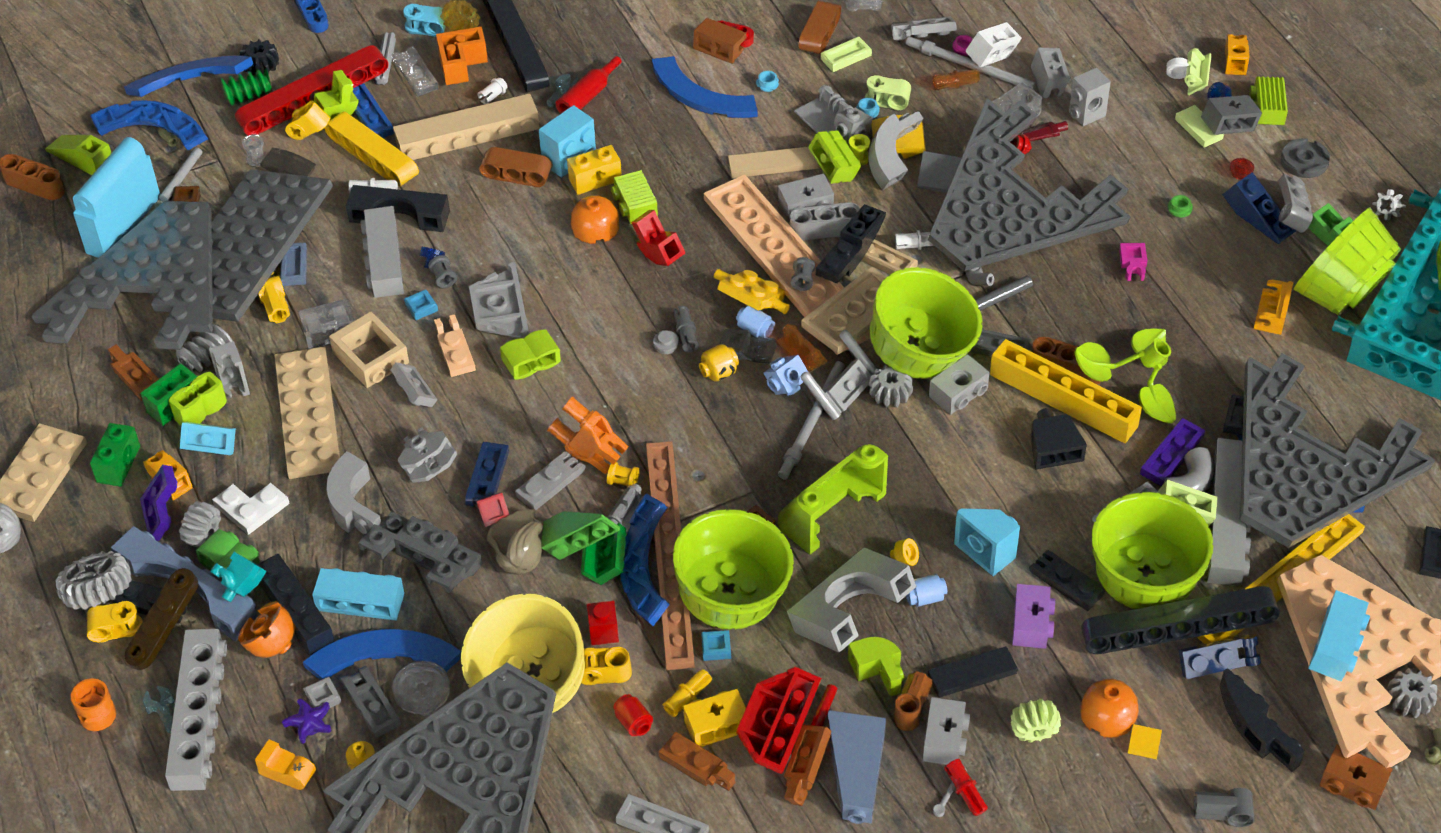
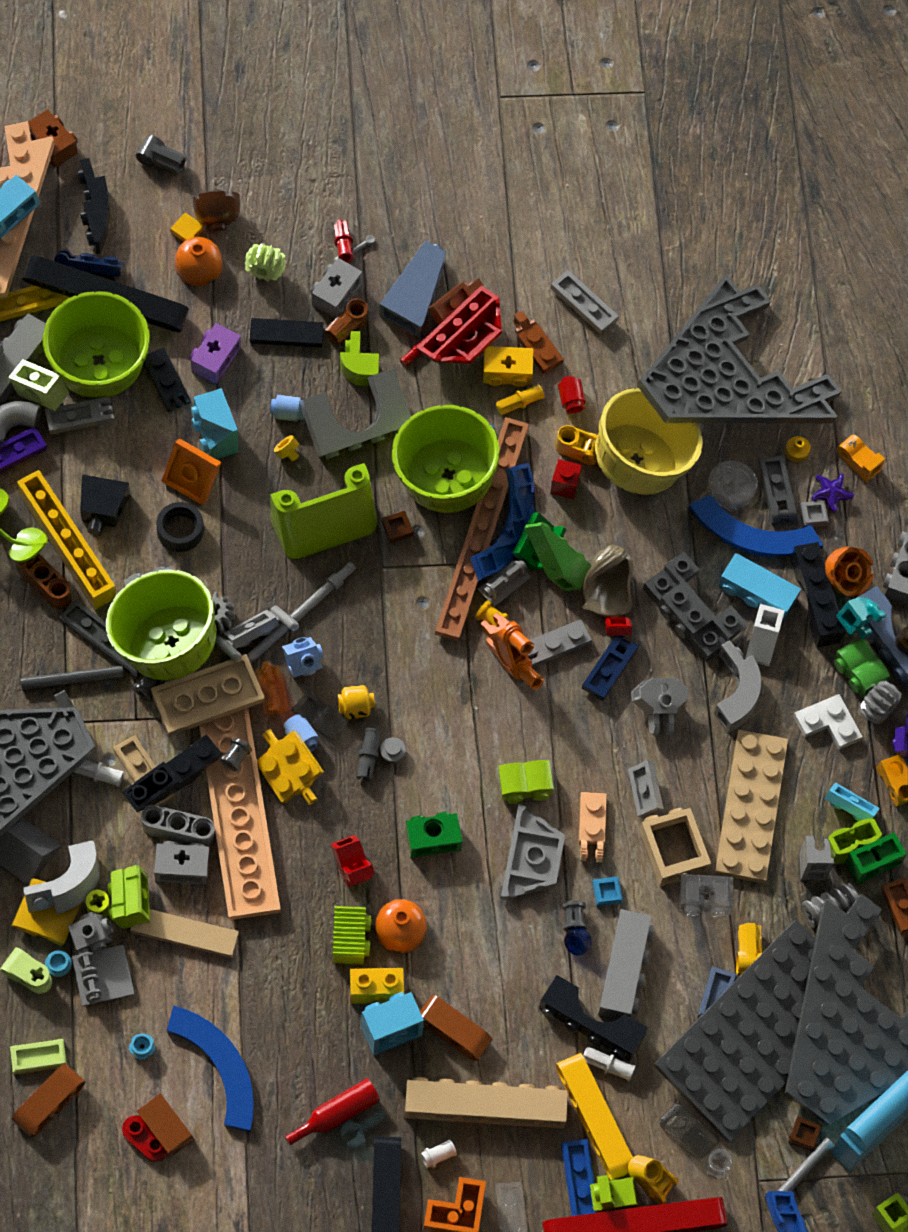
camera: 165 degrees left, 15 degrees up
(338, 549) = (765, 634): none -> white slope
(596, 287) = (422, 844): none -> green brick
(970, 432) = (180, 509): none -> black tyre
(983, 489) = (191, 471): none -> orange tile
(1125, 762) = (217, 209): none -> reddish brown cylinder

